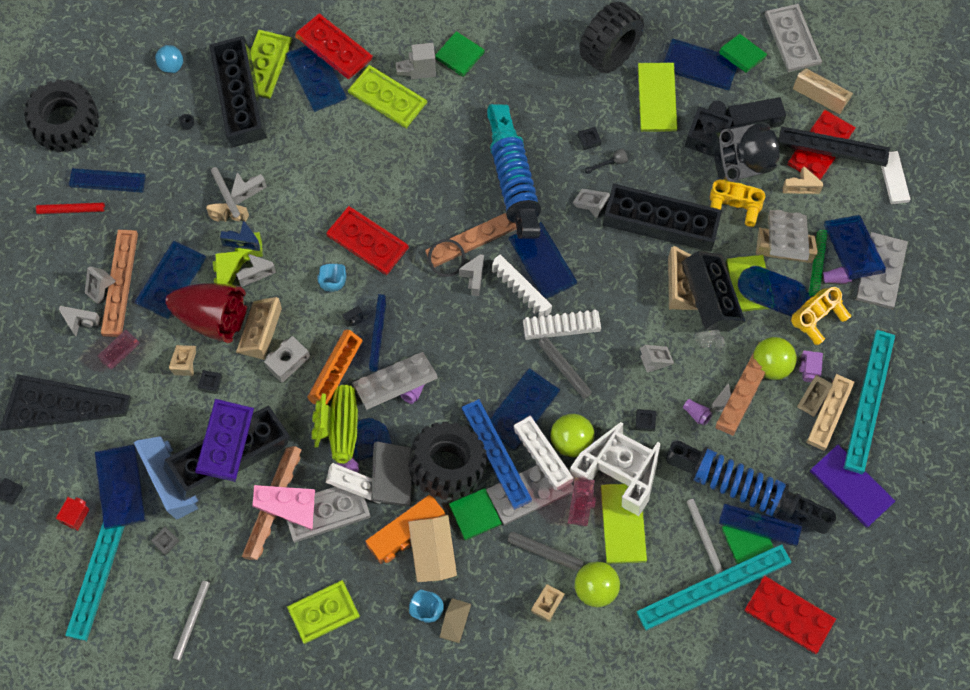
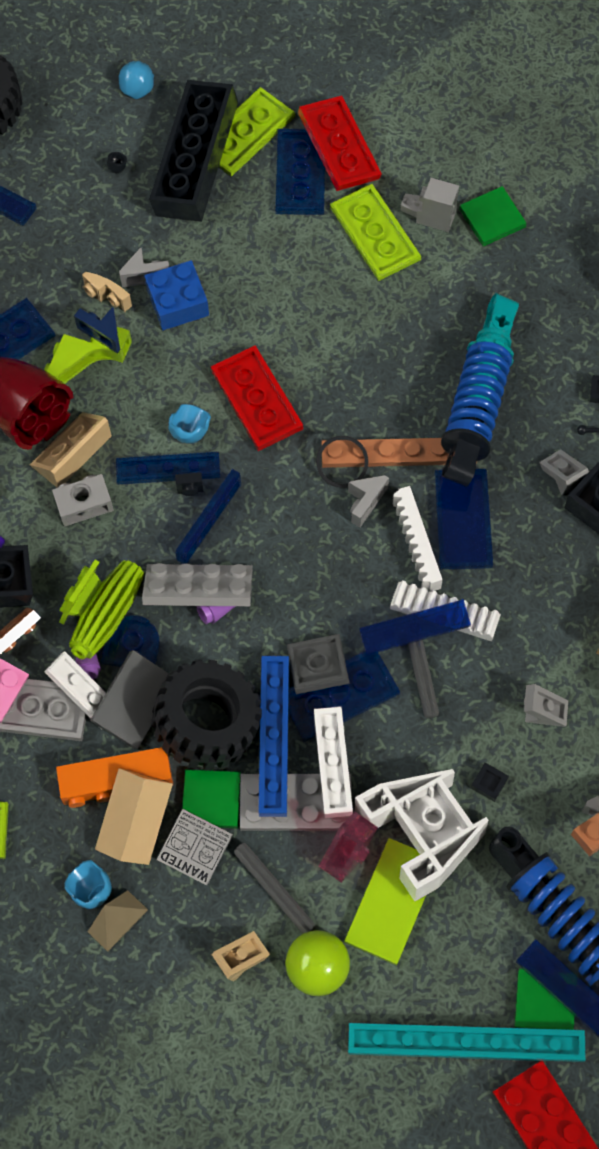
camera: 30 degrees right, 0 degrees up
(225, 192) = (114, 265): light grey bar -> none
(260, 269) = (107, 377): light grey slope -> none
(277, 194) = (177, 295): none -> blue brick
(330, 313) = (164, 467): none -> clear blue tile
(335, 367) = (133, 535): orange brick -> none
(481, 549) = (194, 847): none -> light grey tile
(499, 395) = (317, 664): none -> dark grey tile
(549, 343) = (415, 627): none -> clear blue tile
(572, 434) = (385, 756): lime piece -> none
(698, 412) = (564, 804): medium lavender cone -> none
(704, 536) = (490, 970): light grey bar -> none

